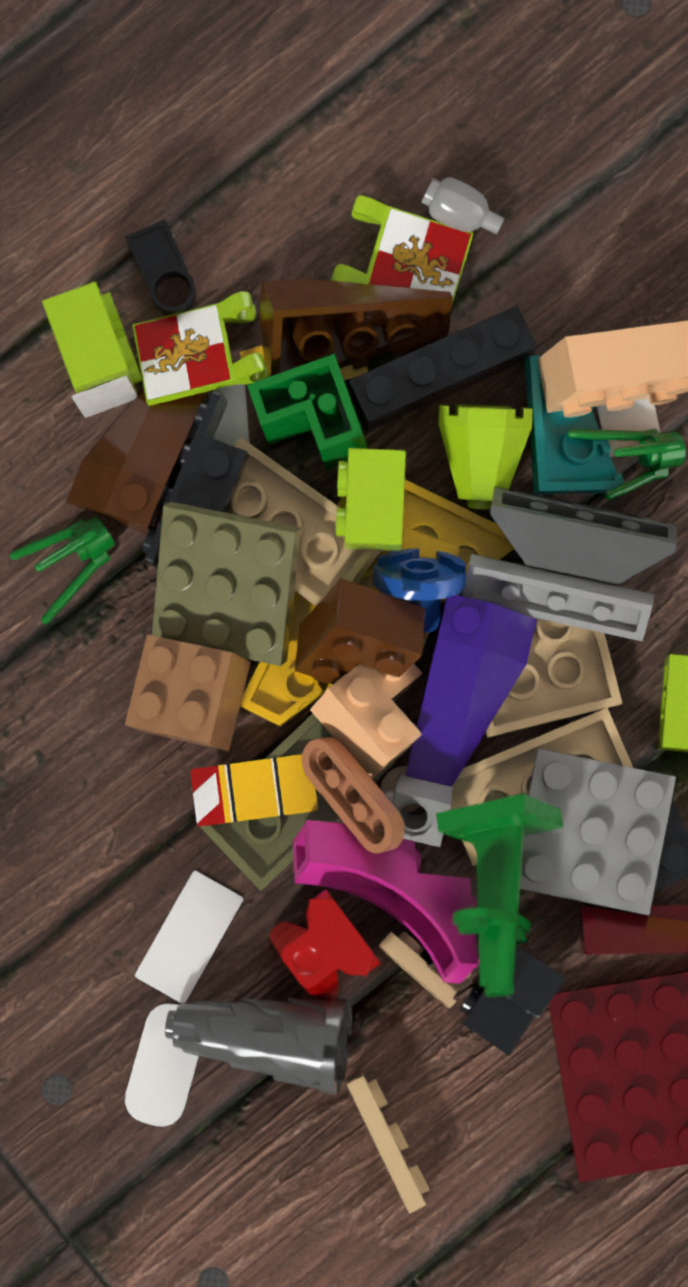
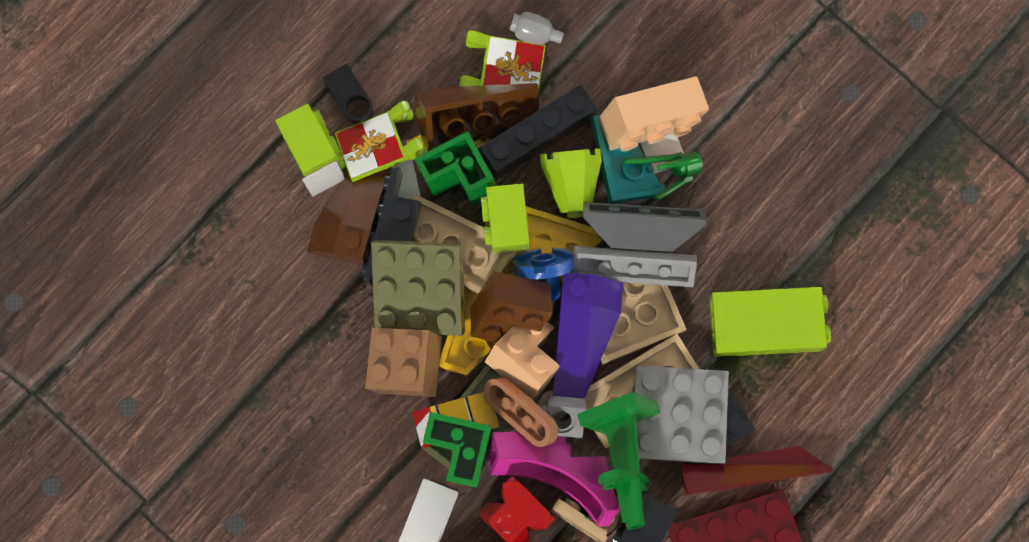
camera: 10 degrees left, 5 degrees down
(84, 538) = (324, 274): green plant -> none
(266, 830) = (465, 439): none -> green brick

